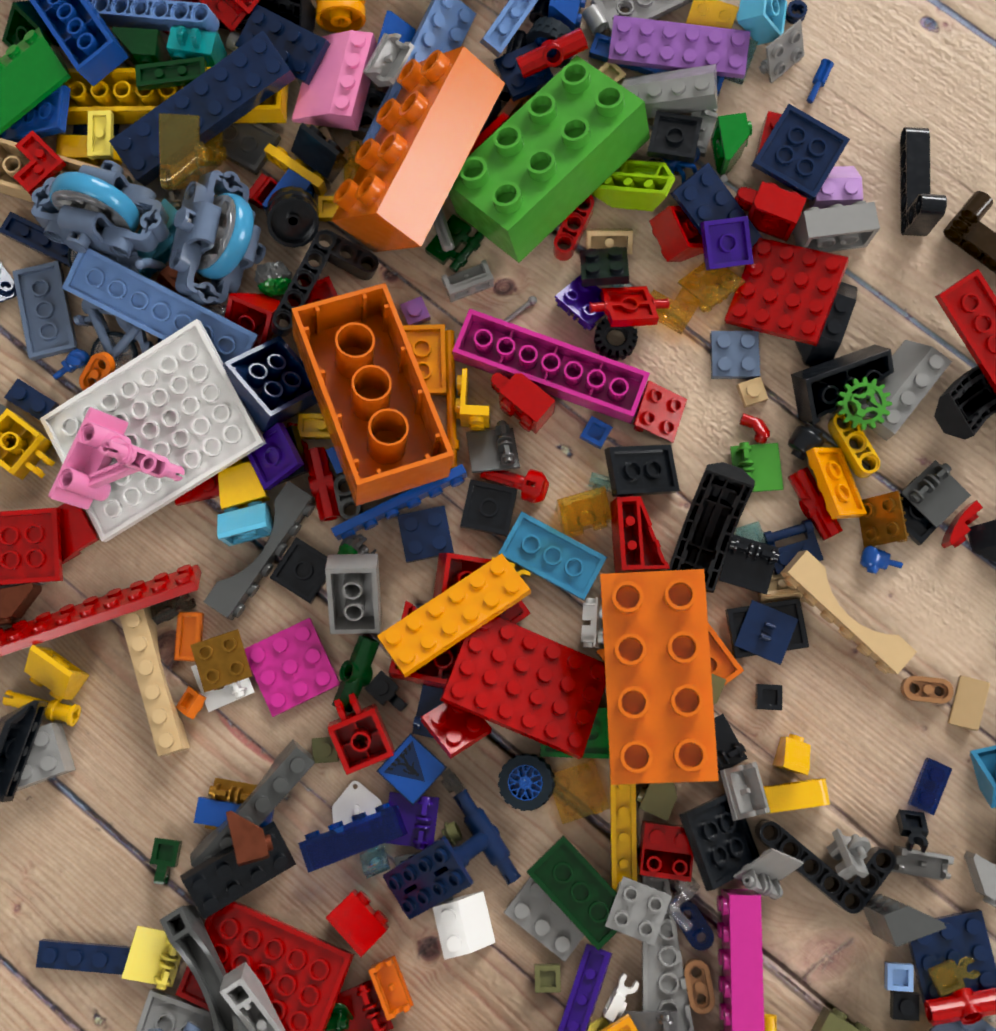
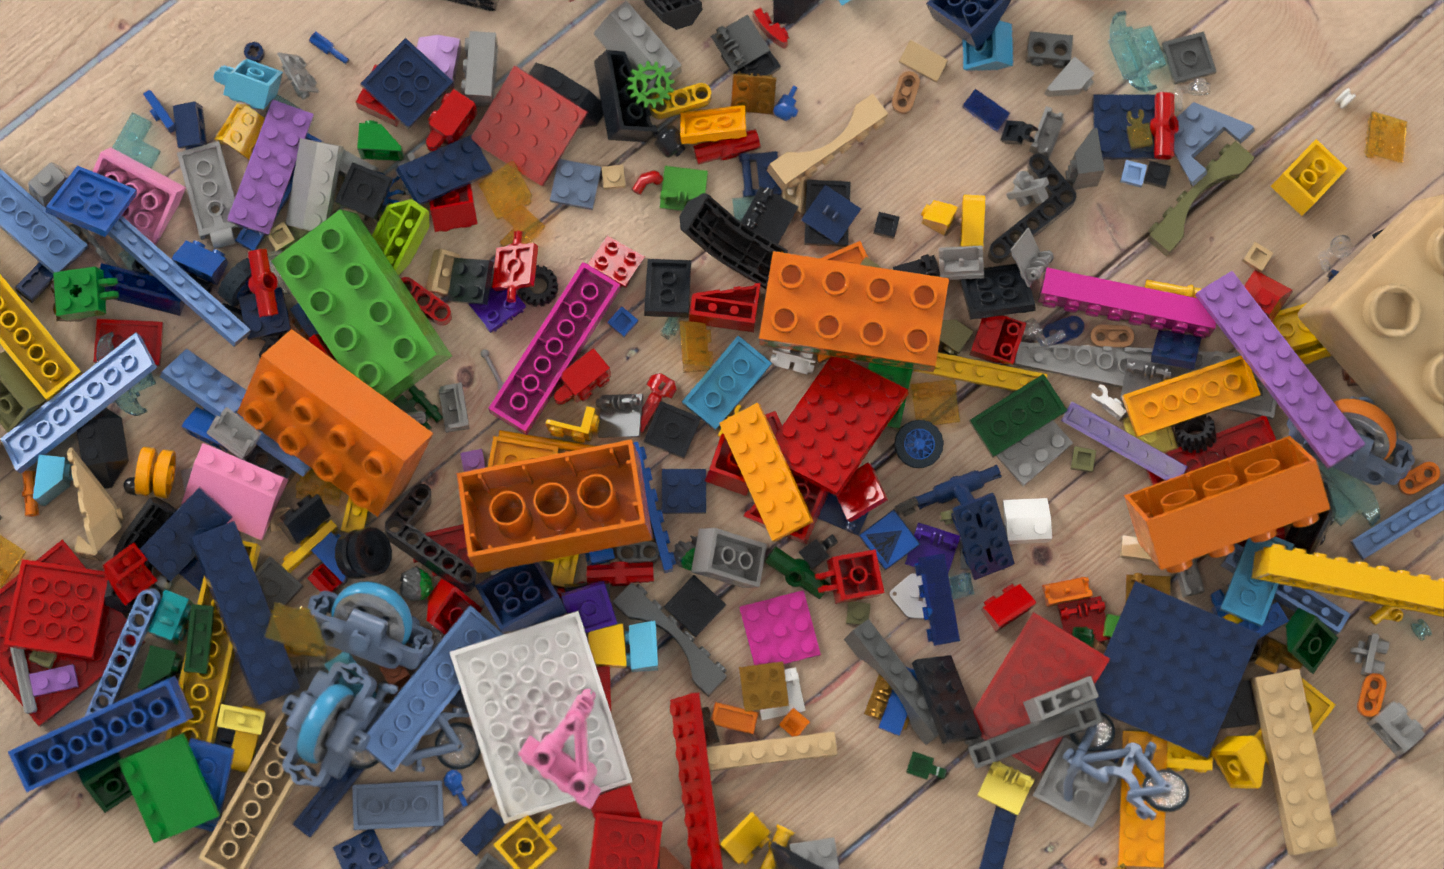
camera: 85 degrees left, 0 degrees up
(43, 162) = (260, 774): red plate -> none
(96, 369) = (471, 761): orange plate -> none
(248, 840) = (922, 680): copper slope -> none
(638, 910) = (1041, 370): light grey hinge -> none
(726, 243) = (475, 167): dark purple plate -> none

